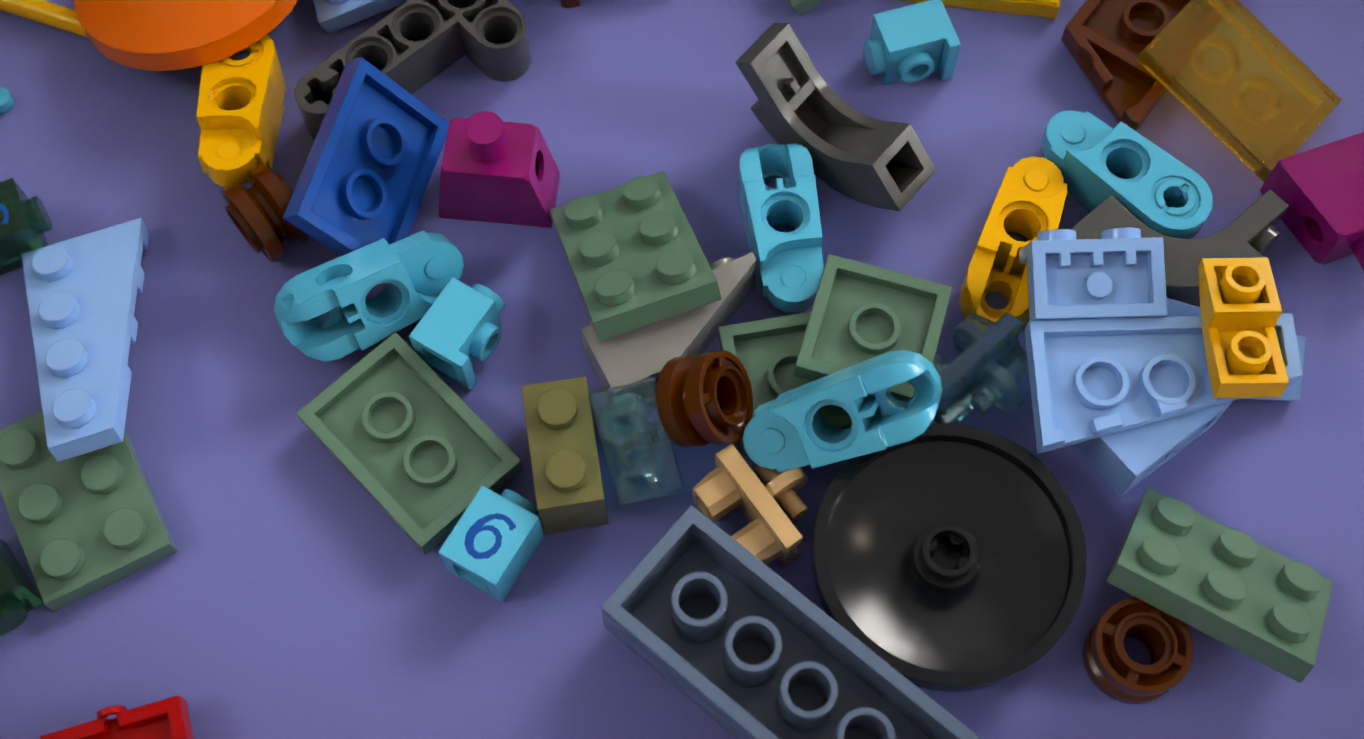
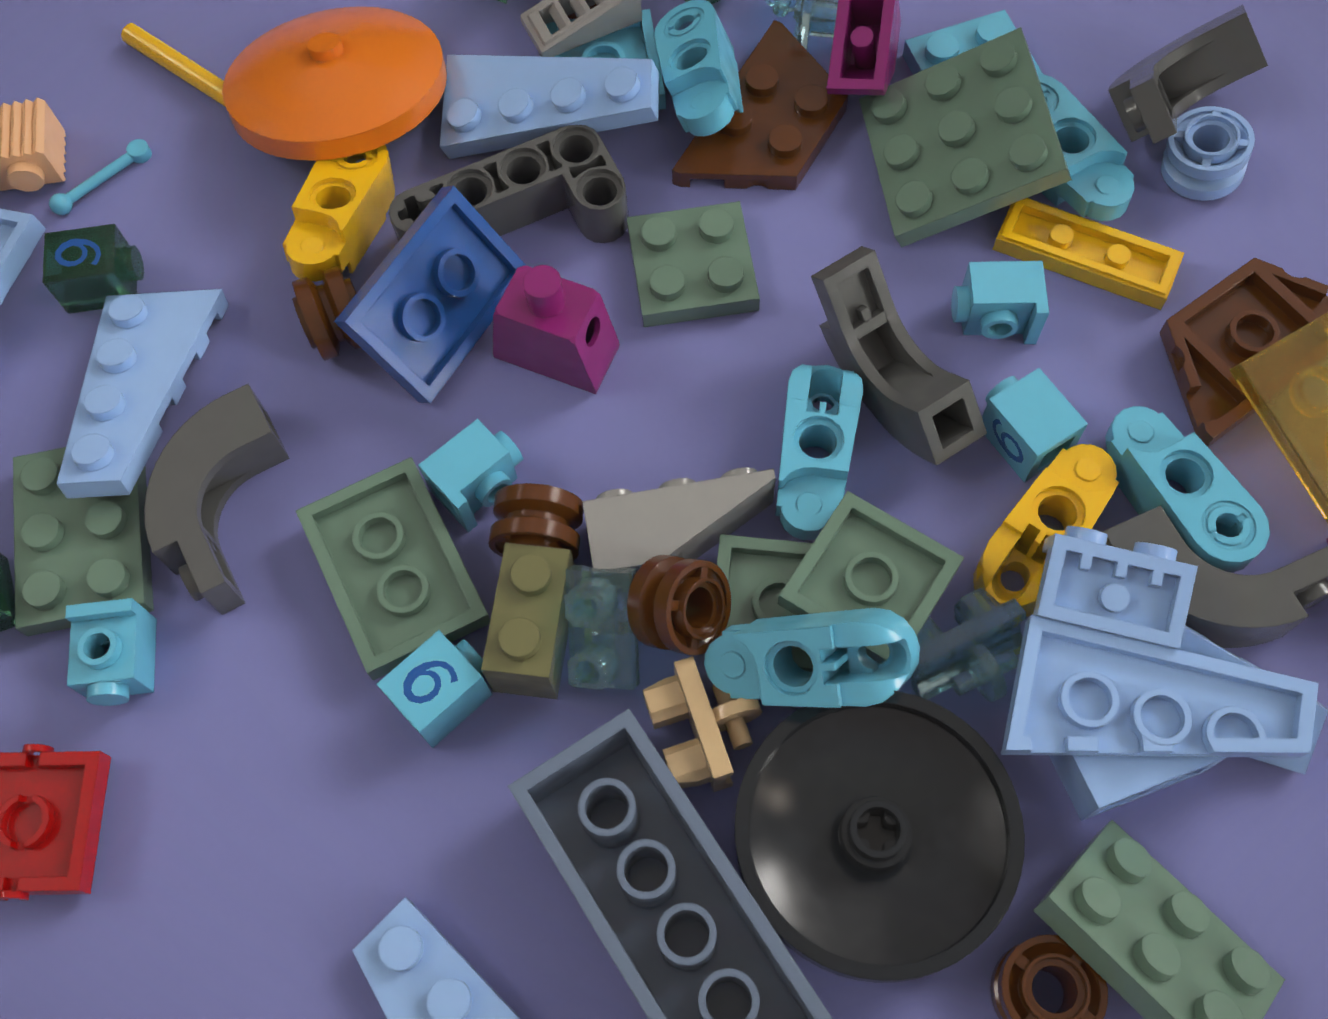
camera: 20 degrees right, 0 degrees up
(151, 572) = (129, 662): none -> medium azure brick
(180, 408) = (193, 482): none -> dark grey arch
(327, 306) = (445, 401): medium azure piece -> none
(538, 355) = (536, 517): none -> reddish brown wheel
(607, 79) = (692, 264): none -> sand green plate
(634, 255) = (657, 443): sand green plate -> none
(972, 150) = (1030, 422): none -> medium azure brick
(1239, 328) = (1254, 684): yellow slope -> none

